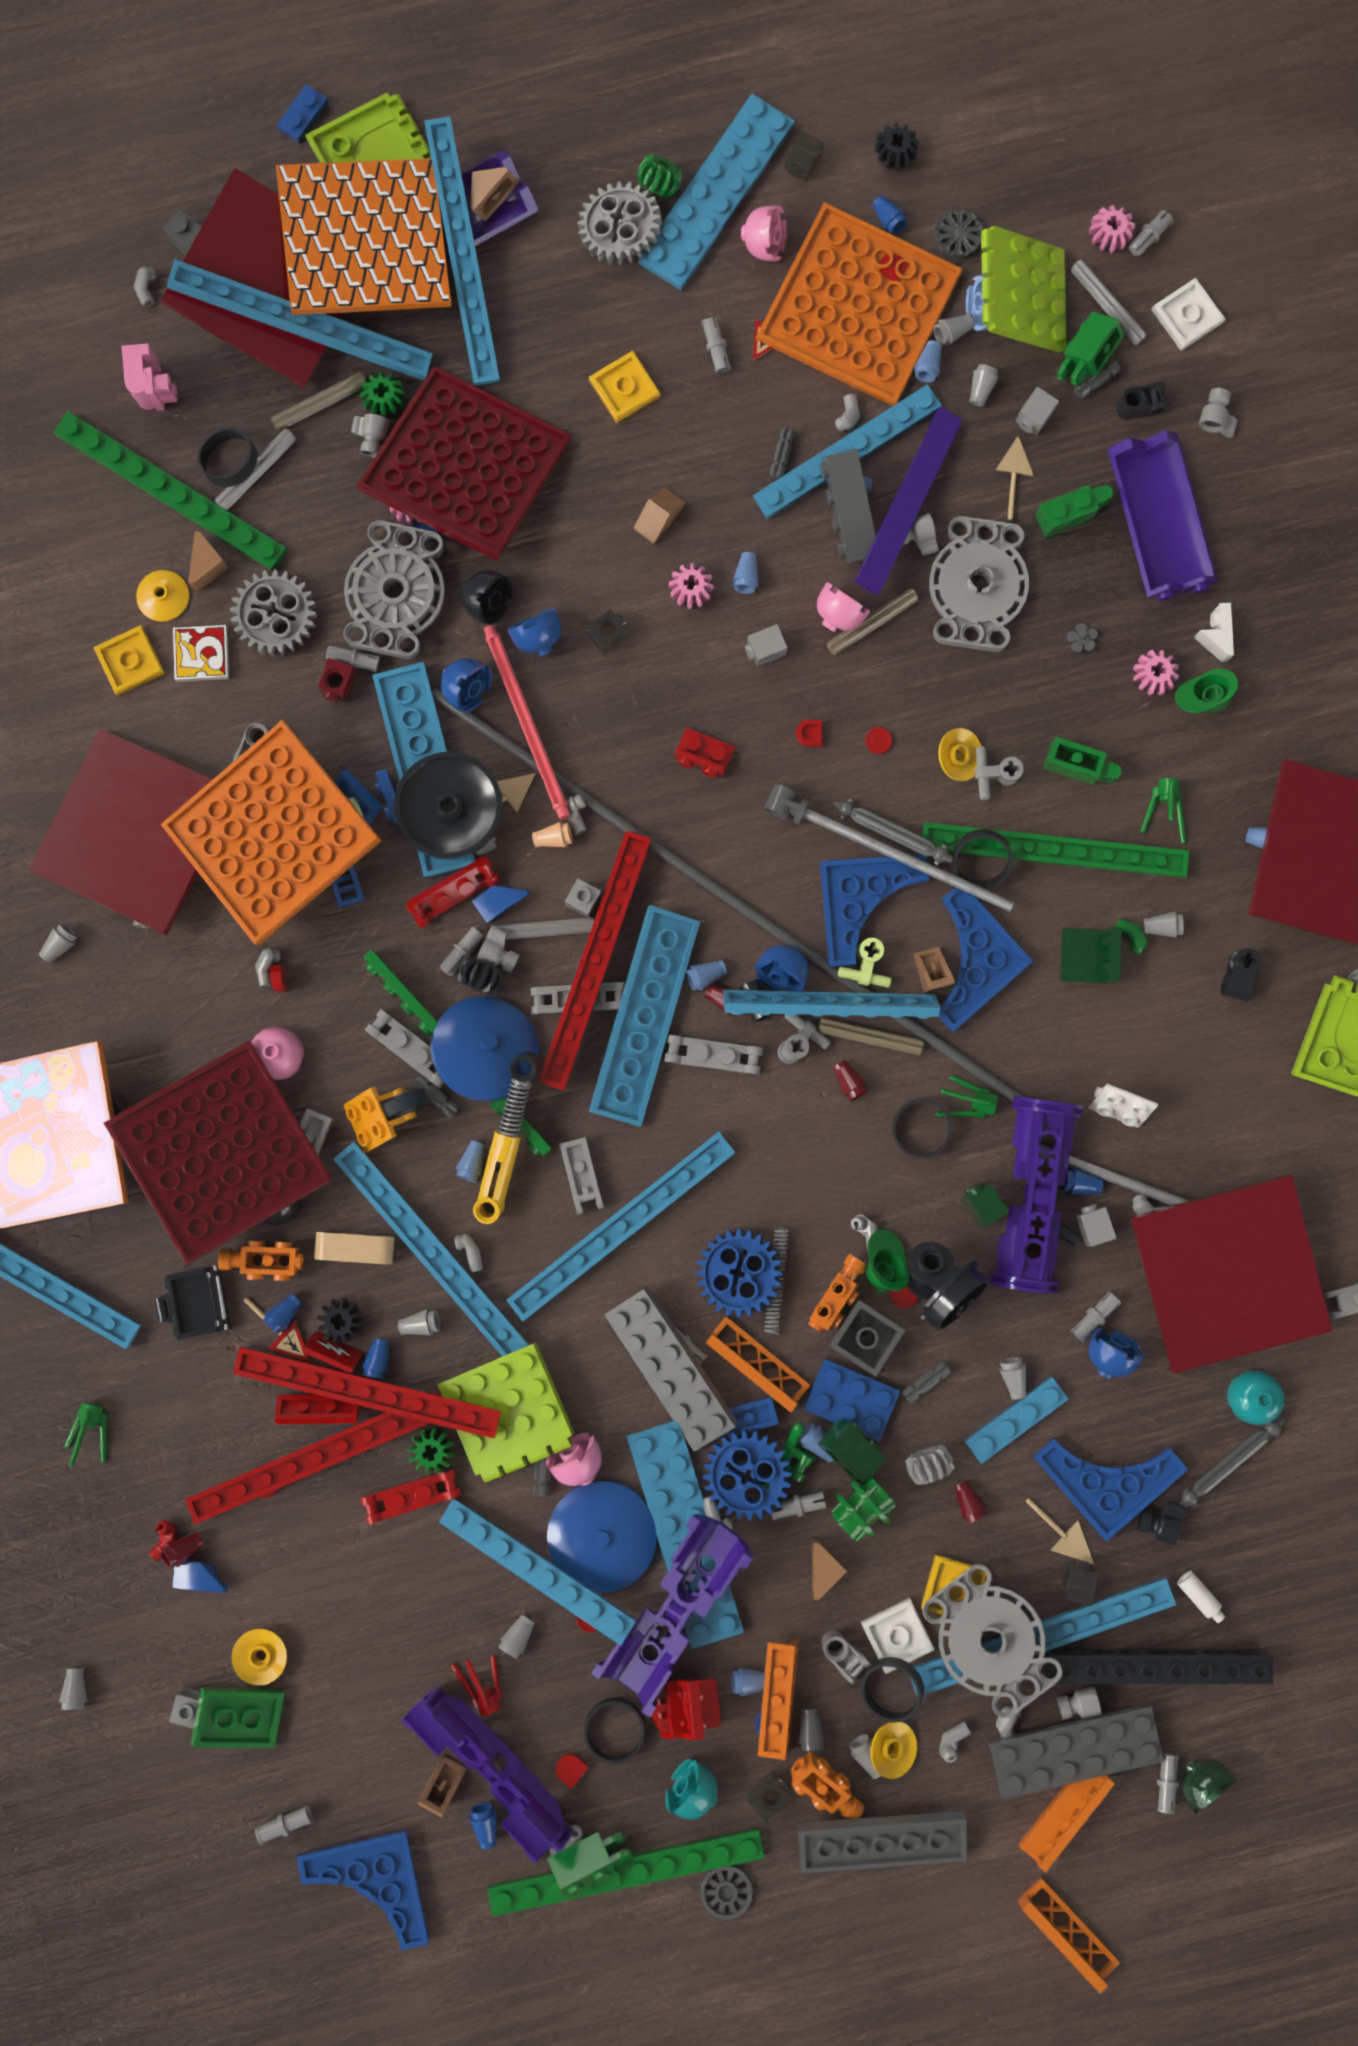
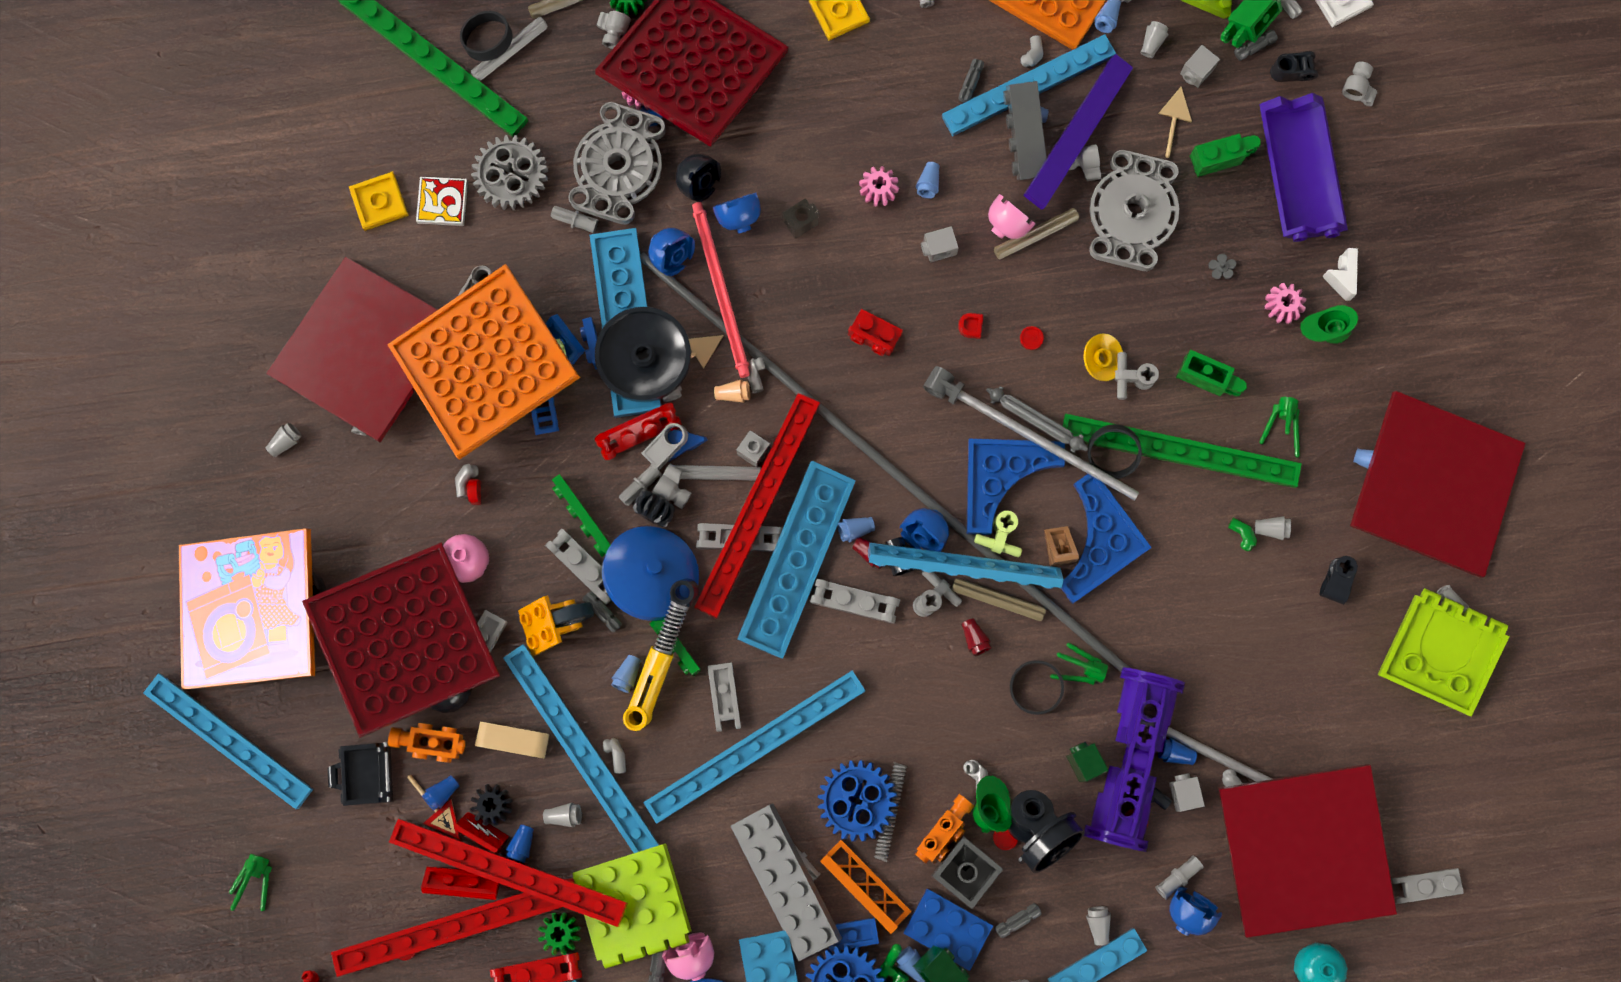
camera: 10 degrees right, 5 degrees down
(168, 606) = (419, 157): yellow dish -> none
(205, 563) = (455, 124): medium nougat slope -> none
(332, 670) = (555, 227): dark red brick -> none
(480, 909) = (661, 450): none -> light grey piece
(658, 514) = (856, 122): medium nougat slope -> none
(1091, 955) = (1204, 548): dark green bracket -> none
(1122, 1105) = (1220, 686): white hinge -> none

